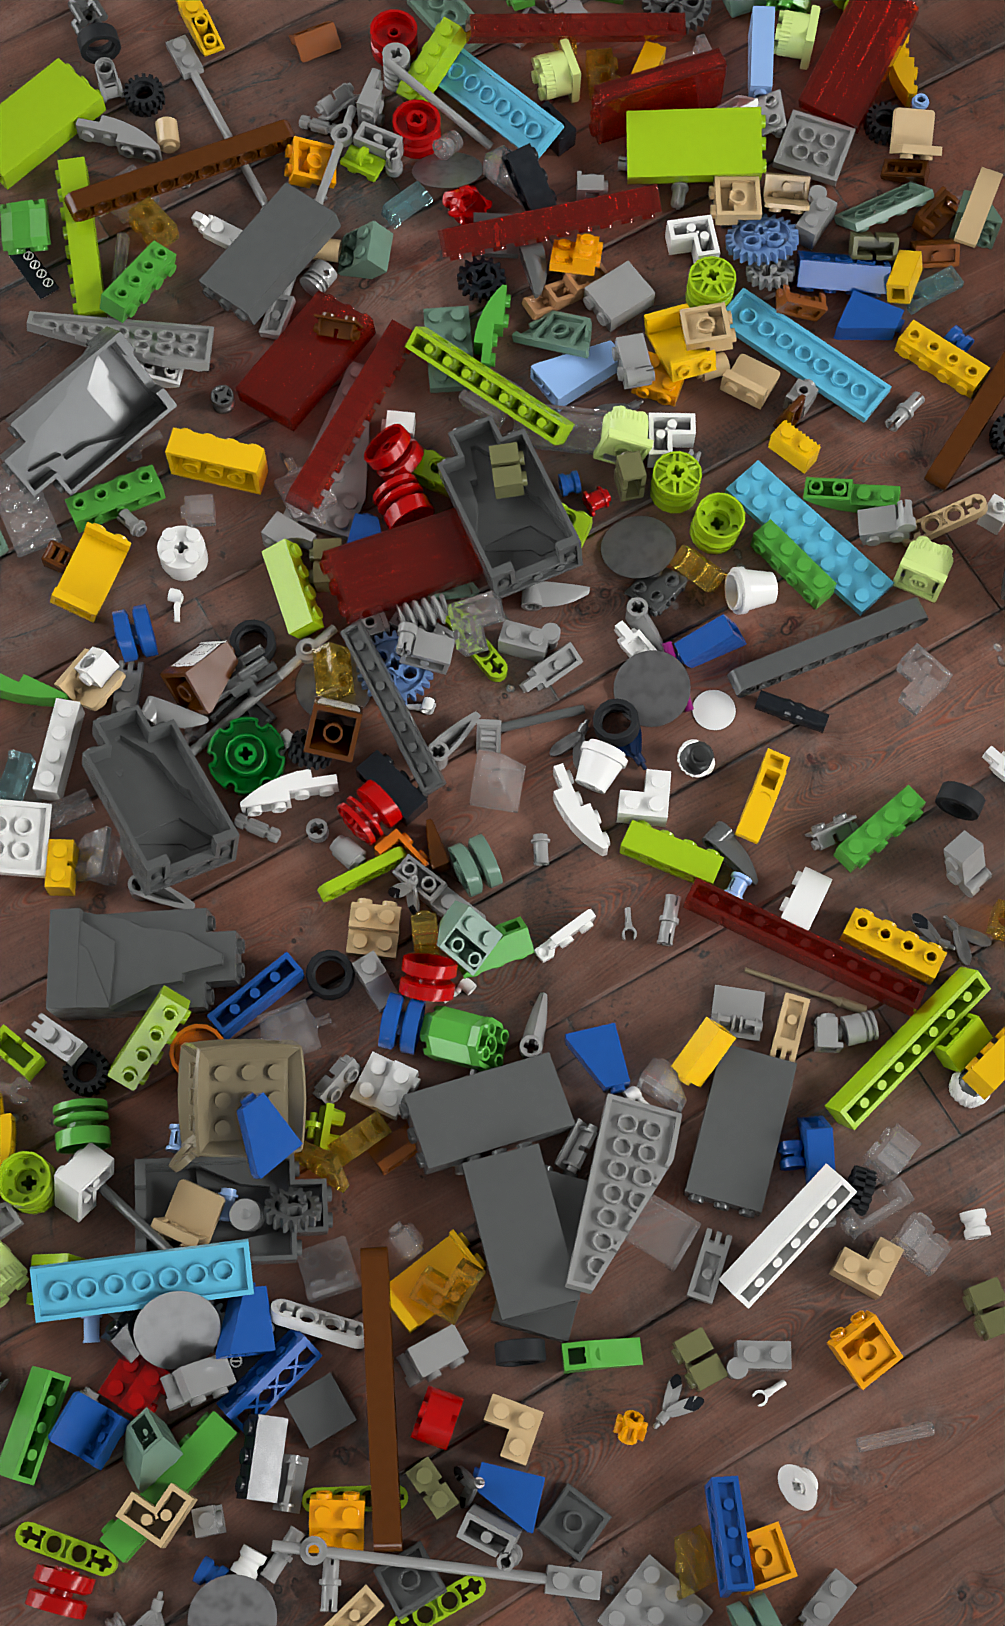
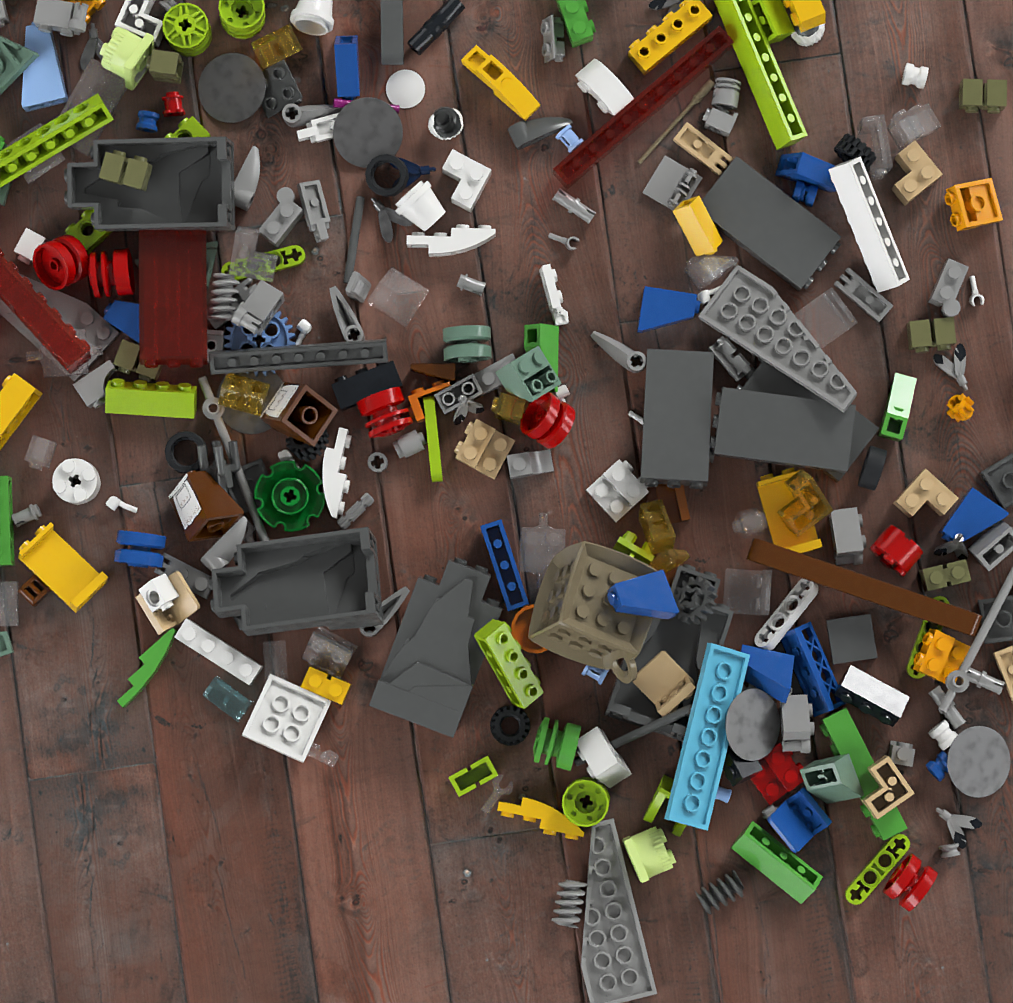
camera: 65 degrees left, 15 degrees up
(57, 1040) = (475, 739): light grey hinge -> none
(230, 1196) = (659, 646): light blue pin -> none
(247, 1215) = (681, 638): light grey piece -> none
(291, 1483) = (898, 680): light grey hinge -> none
(316, 961) = (492, 496): black tyre -> none
(345, 1071) = (594, 517): light grey hinge -> none
(397, 1022) = (574, 459): blue wheel -> none
(463, 1038) = (609, 411): bright green brick -> none
(670, 854) = (520, 180): lime brick -> none
(891, 1154) = (836, 115): clear brick -> none

